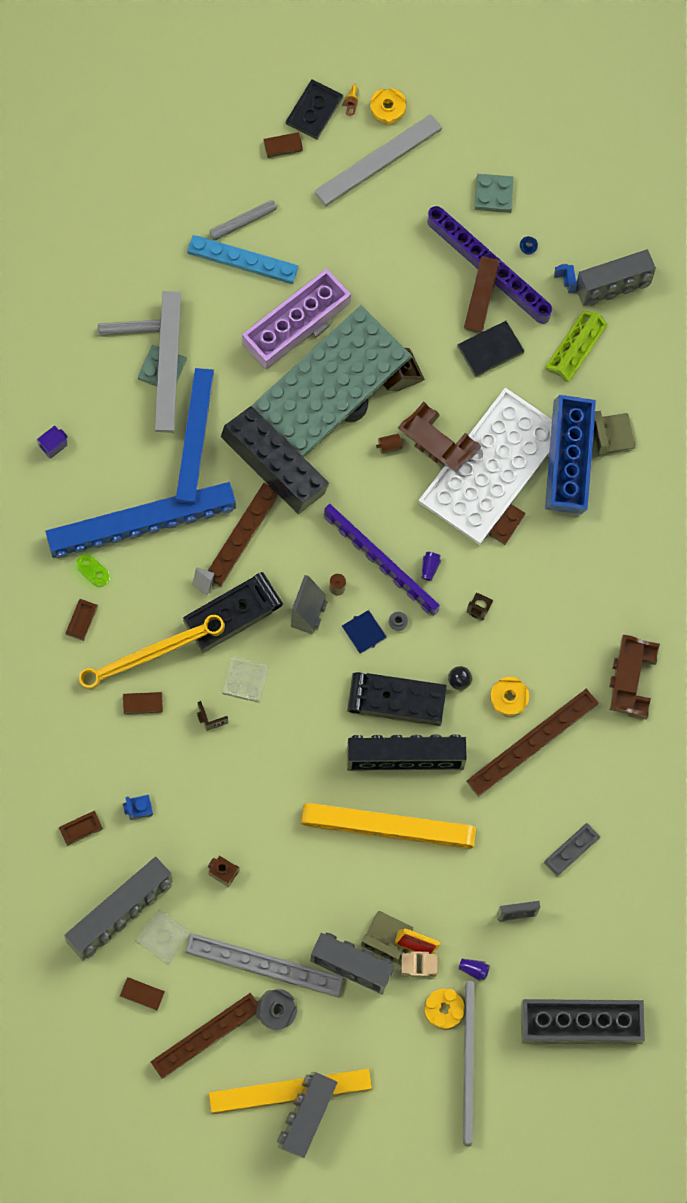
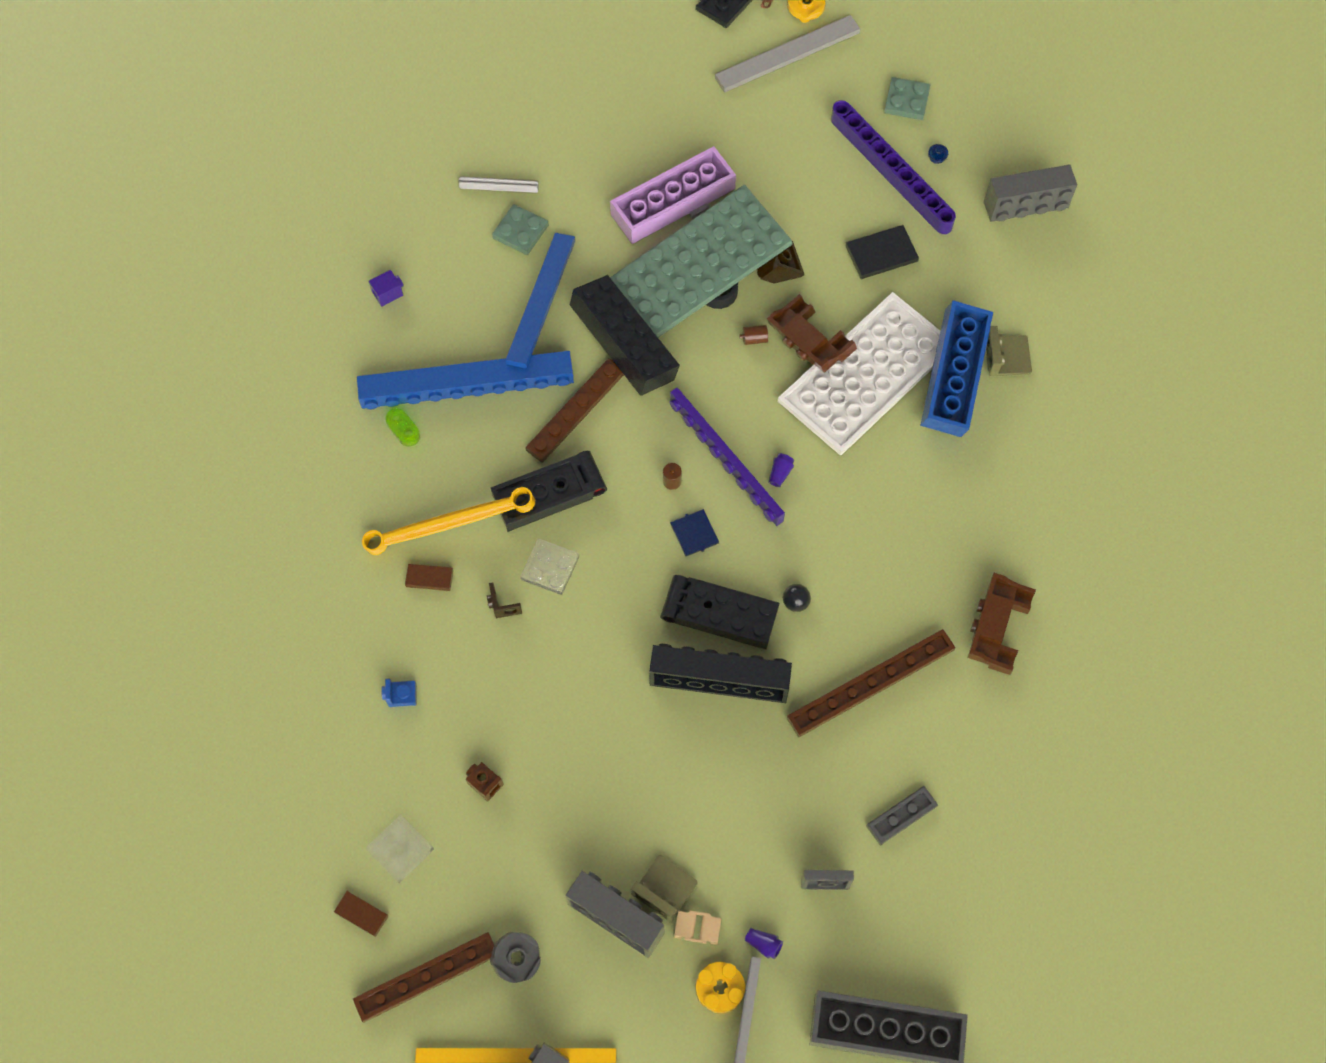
camera: 15 degrees right, 5 degrees down
(80, 828) = (330, 708): reddish brown tile -> none
(81, 619) = (379, 478): reddish brown tile -> none
(119, 908) = (350, 807): dark grey brick -> none
(168, 362) = (526, 222): light grey tile -> none
(203, 580) = (522, 452): light grey slope -> none
(243, 219) = (634, 94): light grey axle -> none
(243, 259) = (627, 132): dark azure plate -> none
(264, 965) = (513, 901): light grey tile -> none
(283, 144) = (689, 28): reddish brown tile -> none
(308, 606) = (632, 493): dark grey slope -> none
(388, 825) = (688, 756): yellow beam -> none
(398, 626) = (735, 531): dark grey plate -> none
(415, 941) = (697, 899): slope -> none
(477, 611) = (828, 526): dark brown bracket -> none
(481, 294) = (879, 193): reddish brown tile -> none
(507, 524) = (875, 437): reddish brown plate -> none
(517, 689) = (851, 639): yellow plate -> none
(568, 274) = (977, 185): blue bracket -> none
(580, 345) = (980, 260): lime fence -> none

